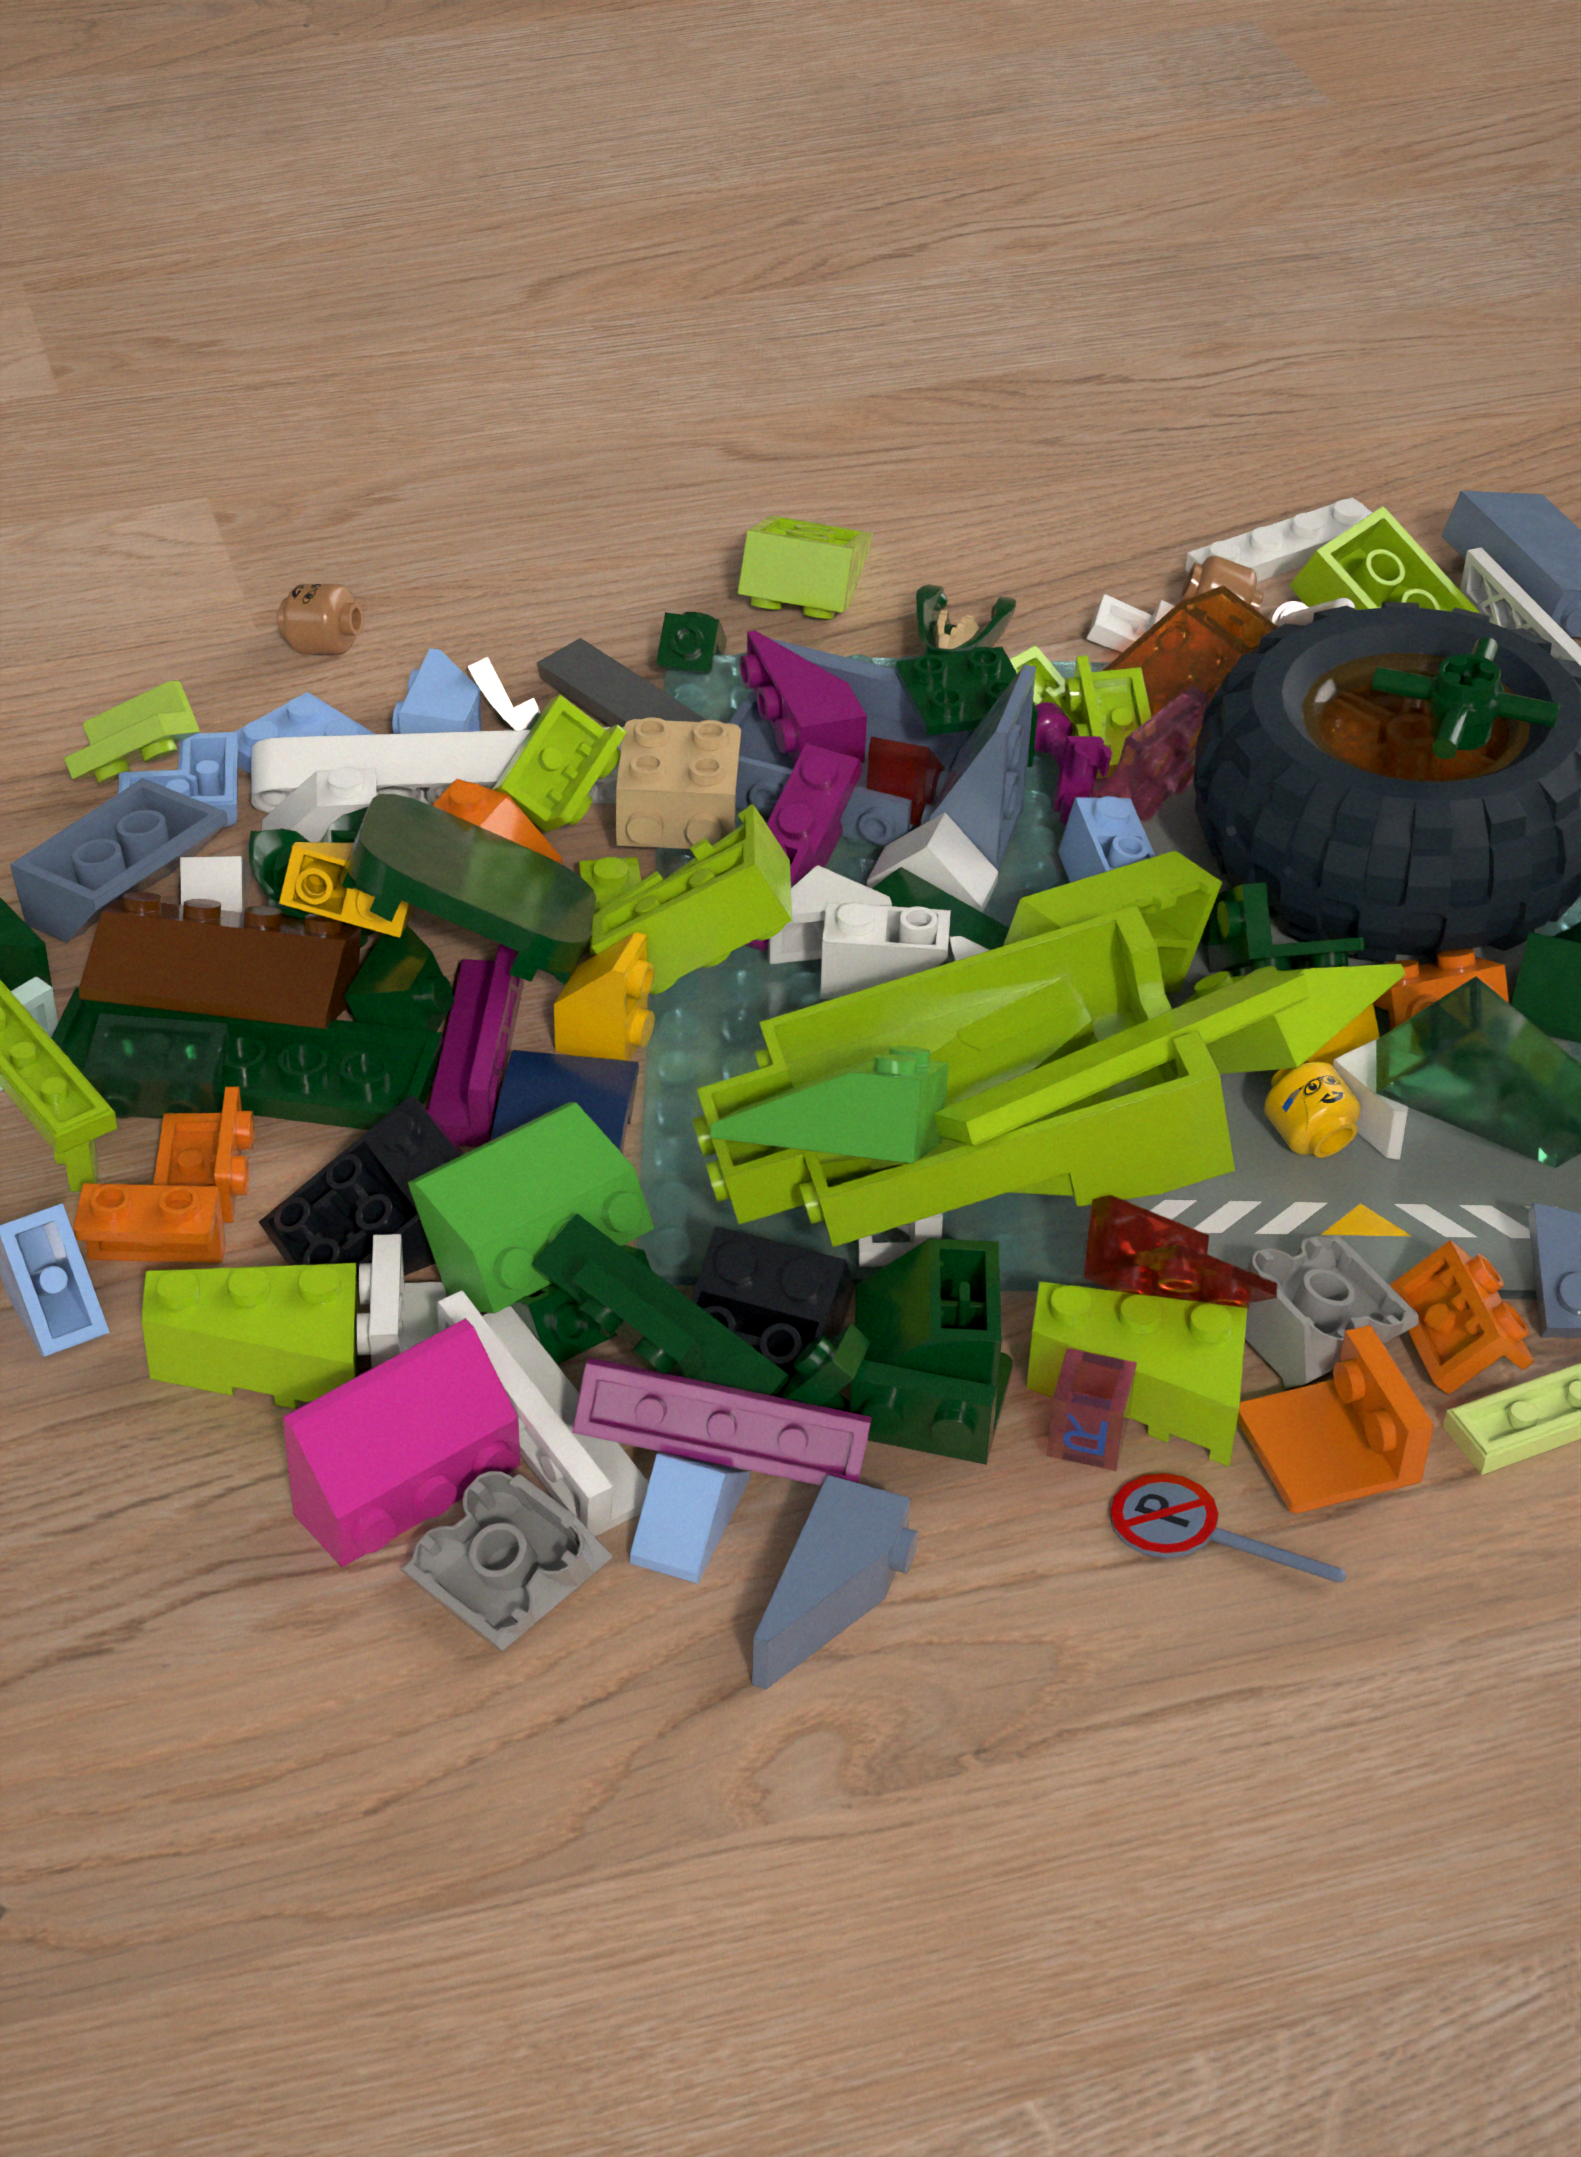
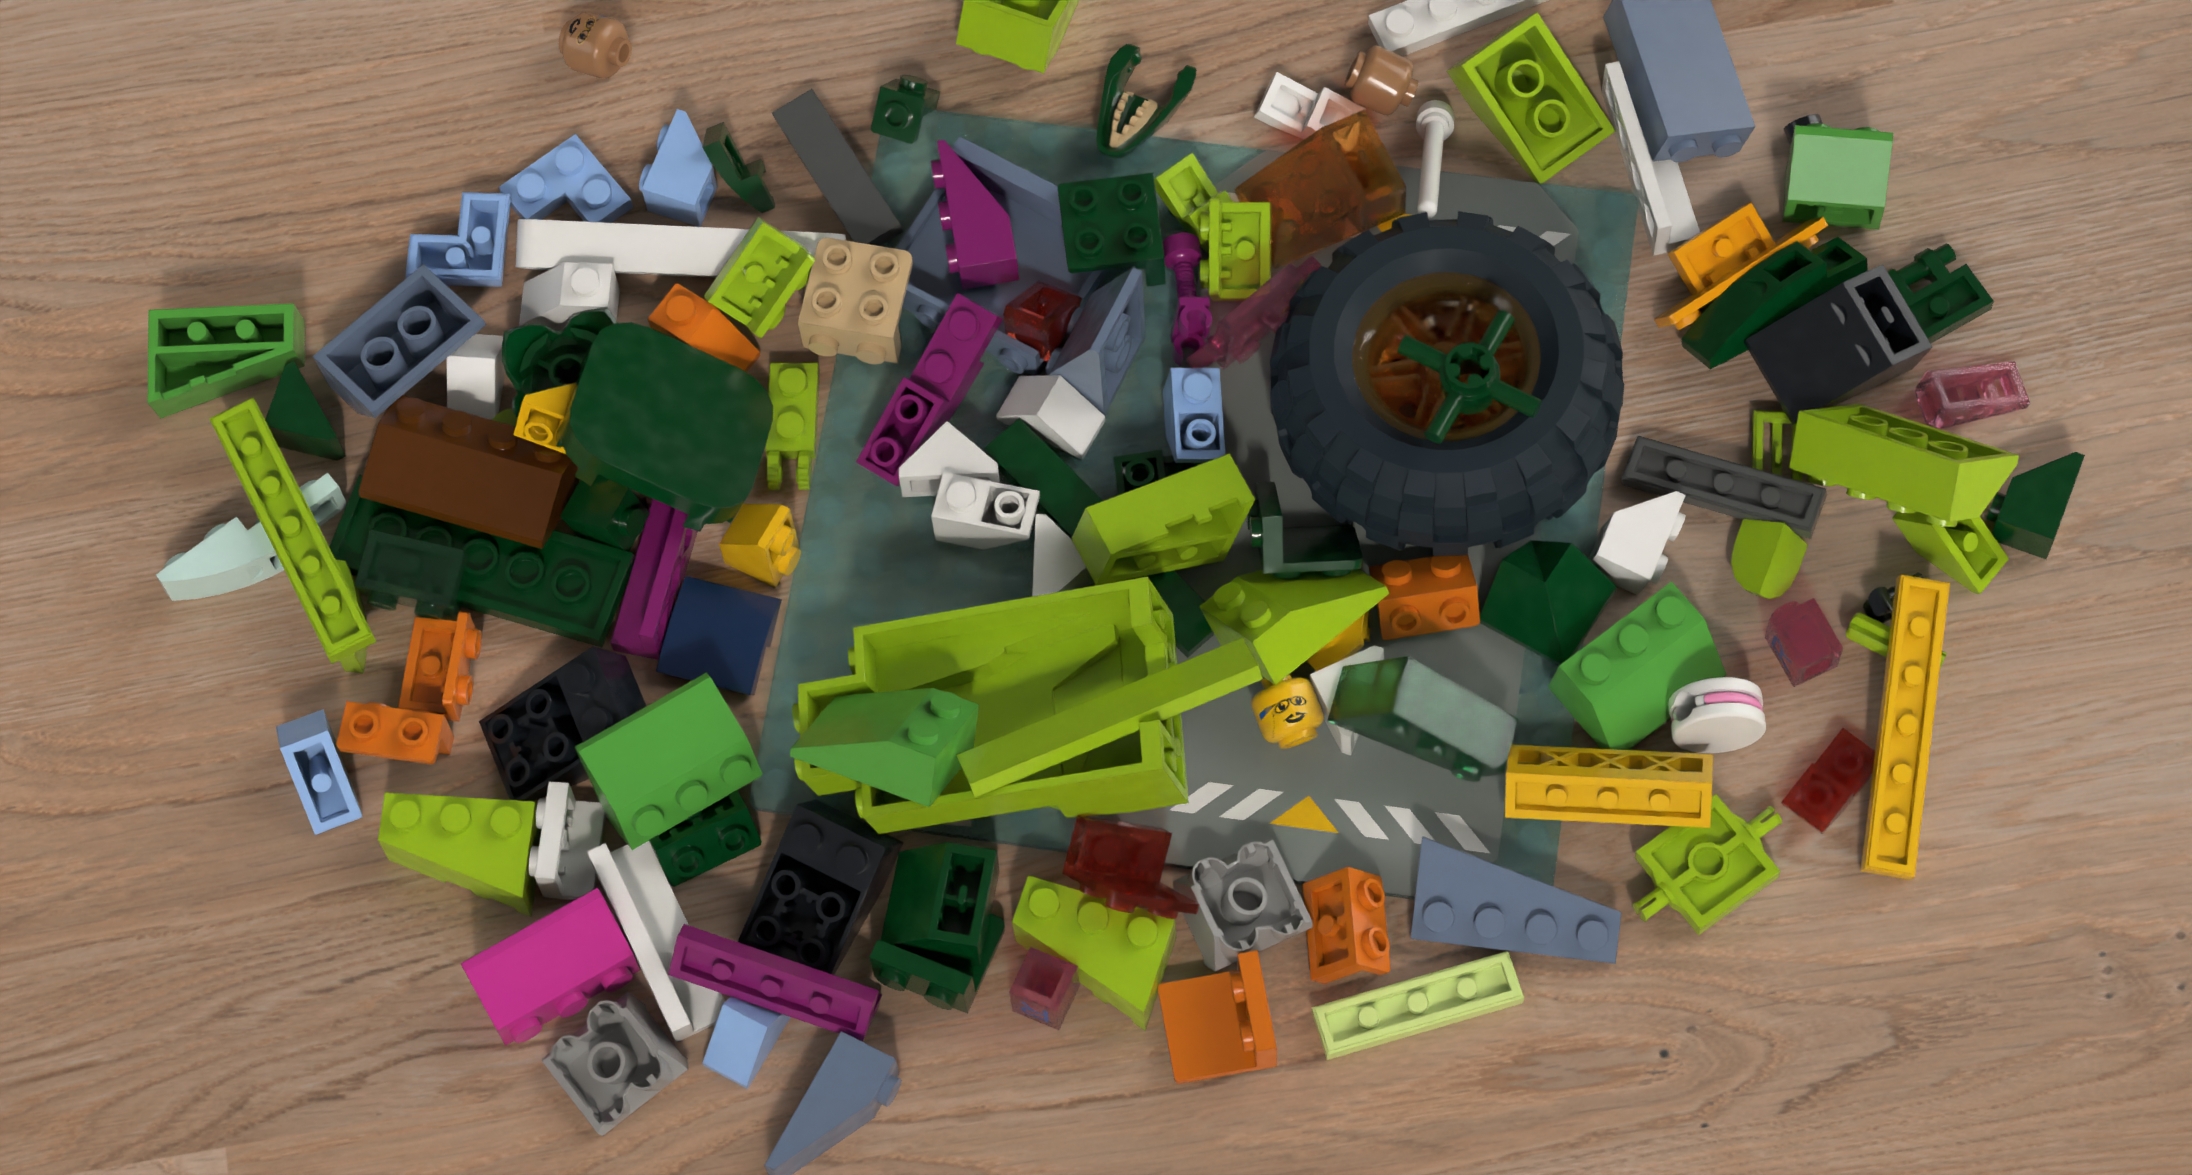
camera: 15 degrees right, 25 degrees up
(134, 731) = (423, 196): lime bracket -> none
(650, 1314) = (738, 883): dark green bracket -> none
(707, 906) = (846, 470): lime wedge -> none
(827, 1368) = (852, 949): dark green bracket -> none
(1176, 1516) = (1089, 1073): piece -> none

